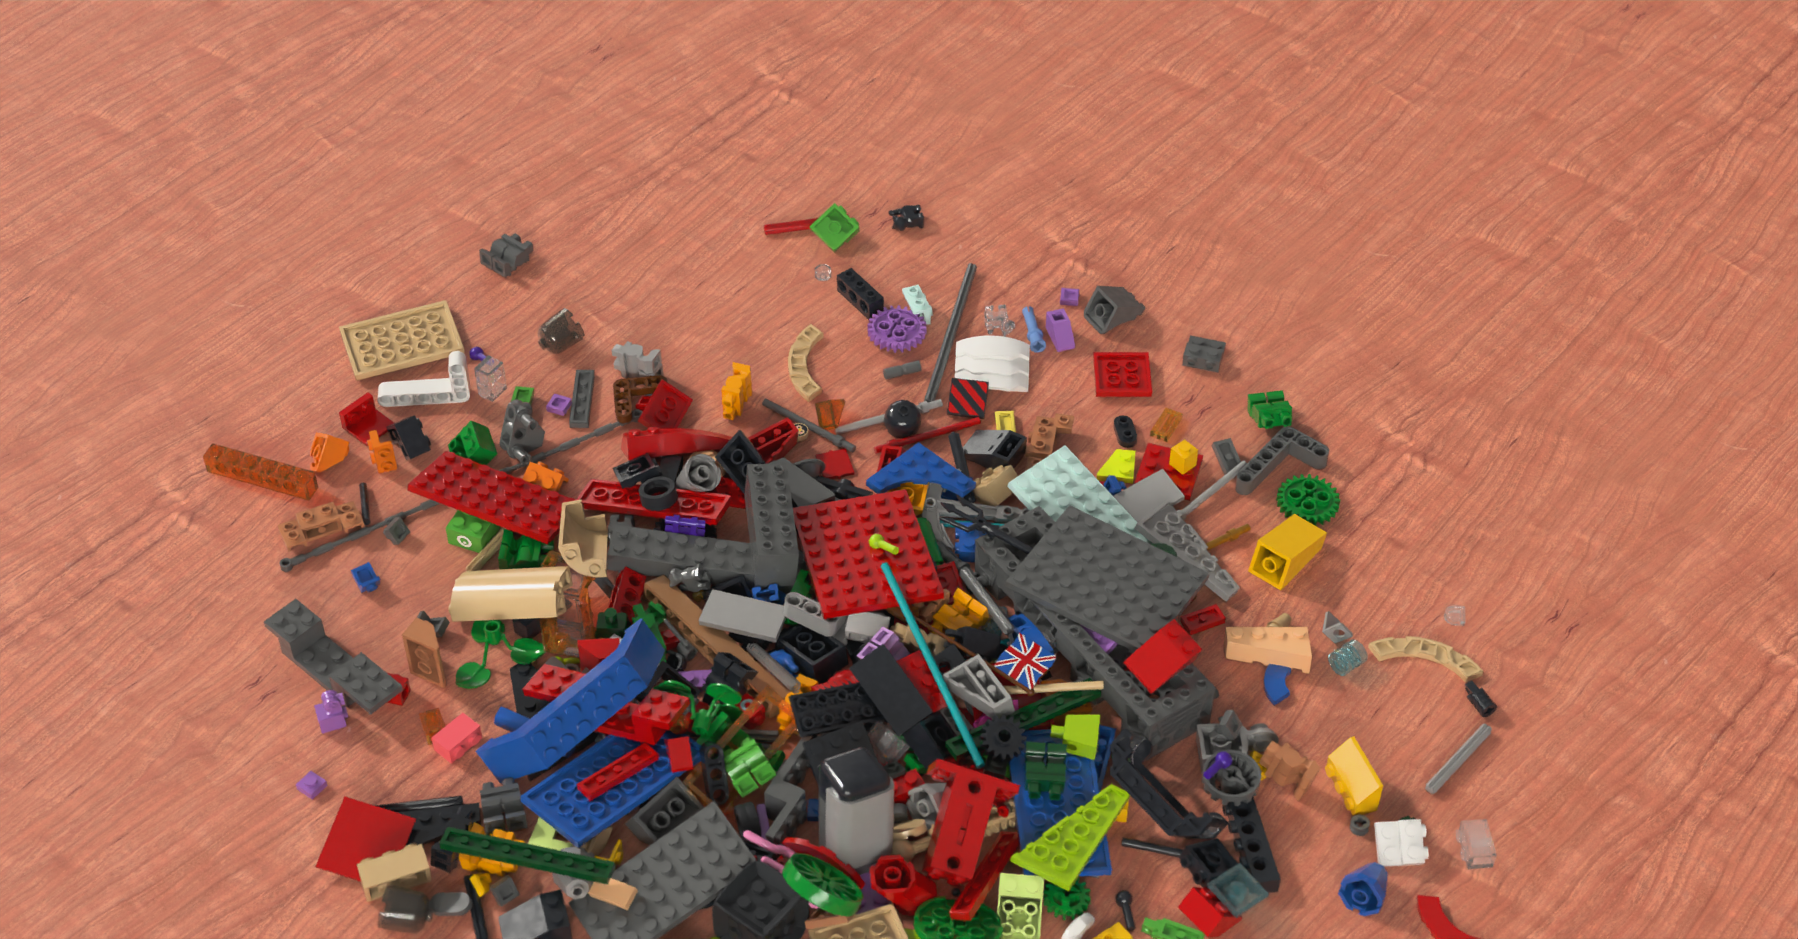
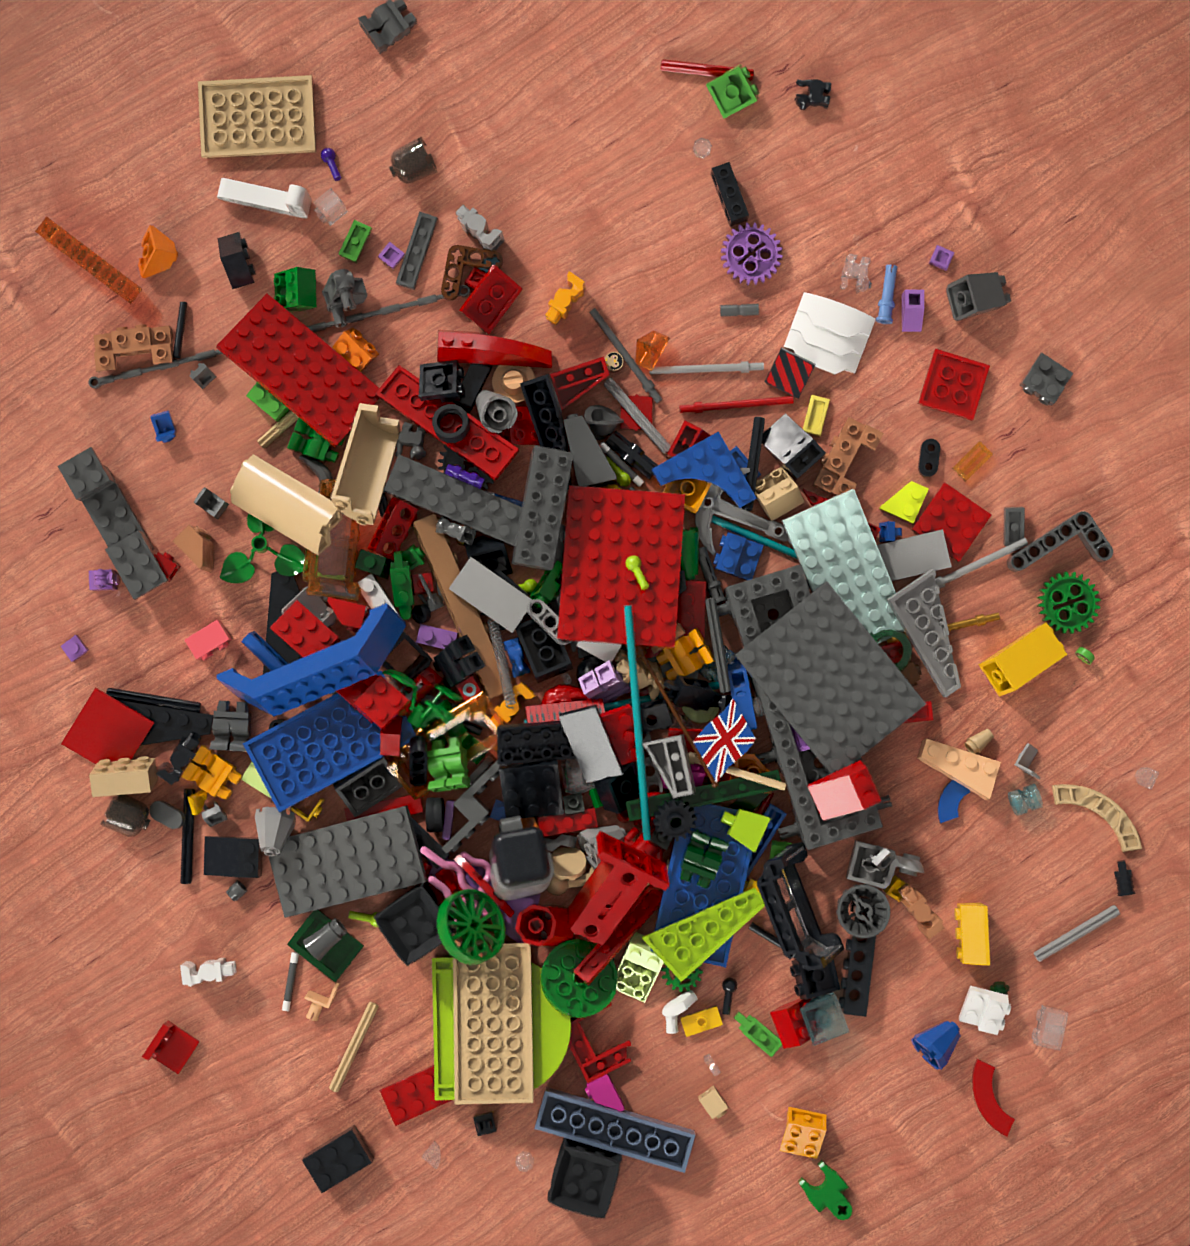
camera: 20 degrees right, 40 degrees up
(363, 417) = (201, 223): red bracket -> none
(382, 453) = (200, 270): orange bracket -> none
(431, 723) = (190, 619): clear orange brick -> none
(527, 855) = (232, 813): dark green plate -> none
(614, 893) = (301, 856): light nougat tile -> none
(617, 771) = (332, 742): red tile -> none
(770, 595) = (521, 573): blue animal -> none
(798, 363) = (640, 266): tan tile -> none
(833, 460) = (637, 415): none -> light grey axle
(902, 419) = (717, 380): black cylinder -> none
(918, 302) = (781, 228): light aqua bracket -> none
(950, 333) = (804, 273): dark grey axle -> none
(981, 524) = (739, 581): black piece -> none
(1183, 457) = (968, 522): yellow brick -> none
(1222, 760) = (860, 897): dark purple bar -> none
(1269, 409) = (1080, 489): green hips -> none
(1344, 535) = (1085, 655): none -> bright green tile
(1359, 831) = (962, 978): dark grey bush -> none

